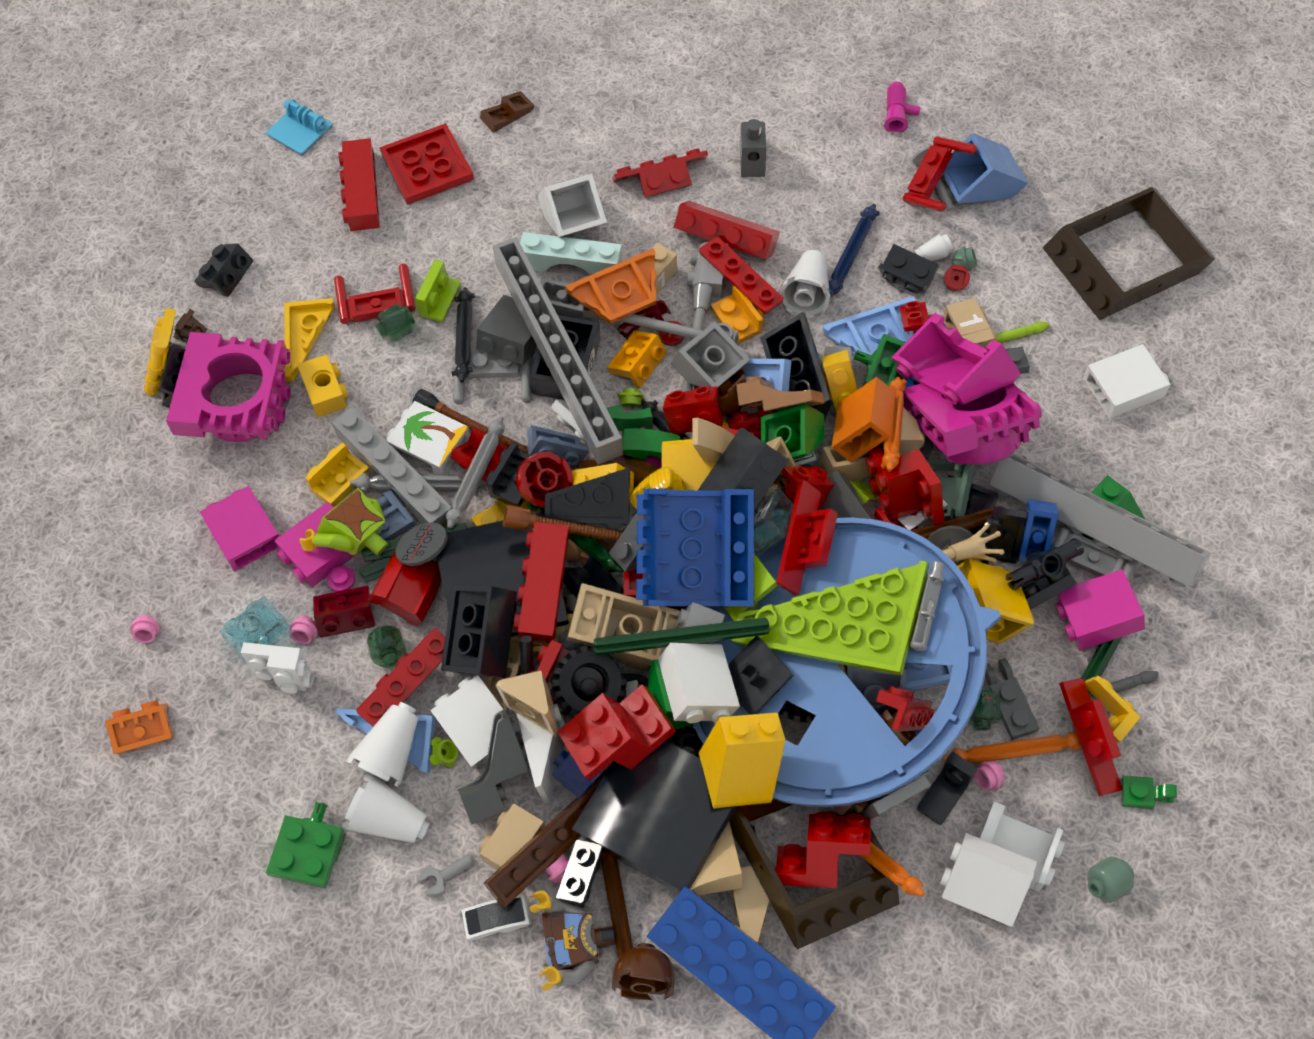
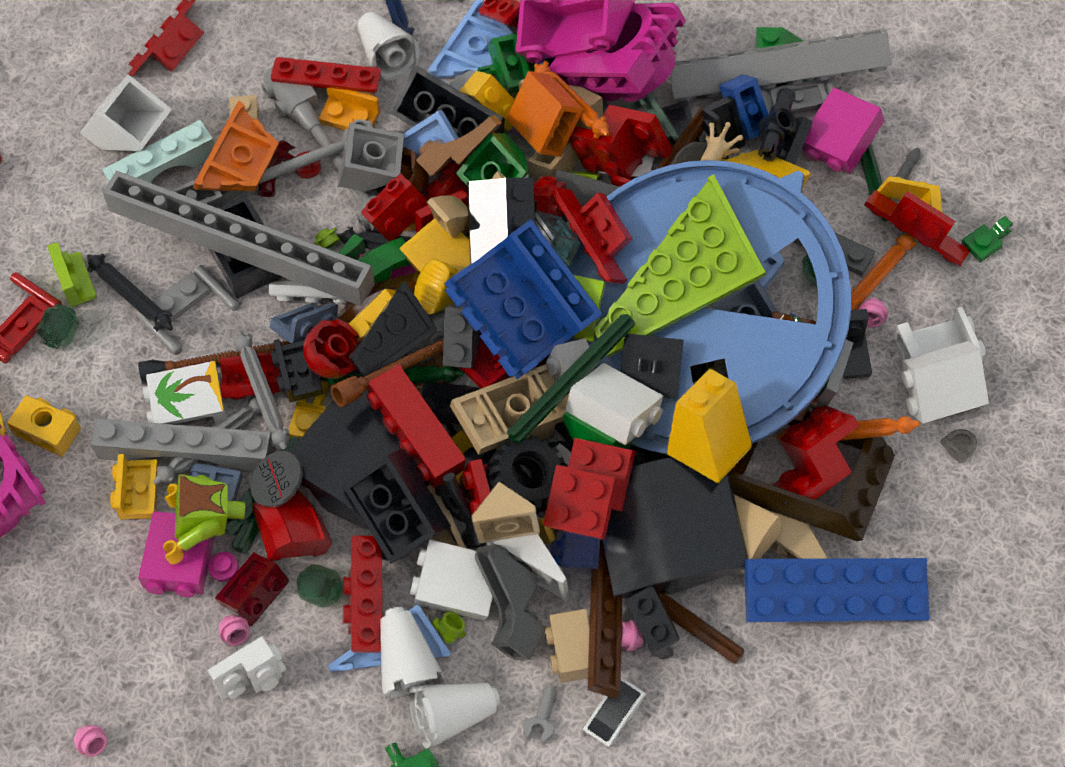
camera: 40 degrees left, 0 degrees up
(240, 528) = (92, 593): dark pink brick -> none
(261, 613) = (192, 680): clear light blue brick -> none
(505, 333) = (170, 260): dark grey brick -> none
(569, 941) = (688, 678): torso -> none
(638, 357) = (299, 203): light orange bracket -> none
(643, 972) = (768, 651): reddish brown cylinder -> none
(732, 230) = (263, 49): red brick -> none
(912, 712) = (796, 299): red bracket -> none
(927, 608) = (742, 209): light grey piece -> none
(960, 940) = (960, 444): none -> clear smoke tile
(1110, 879) = (1021, 317): sand green head -> none

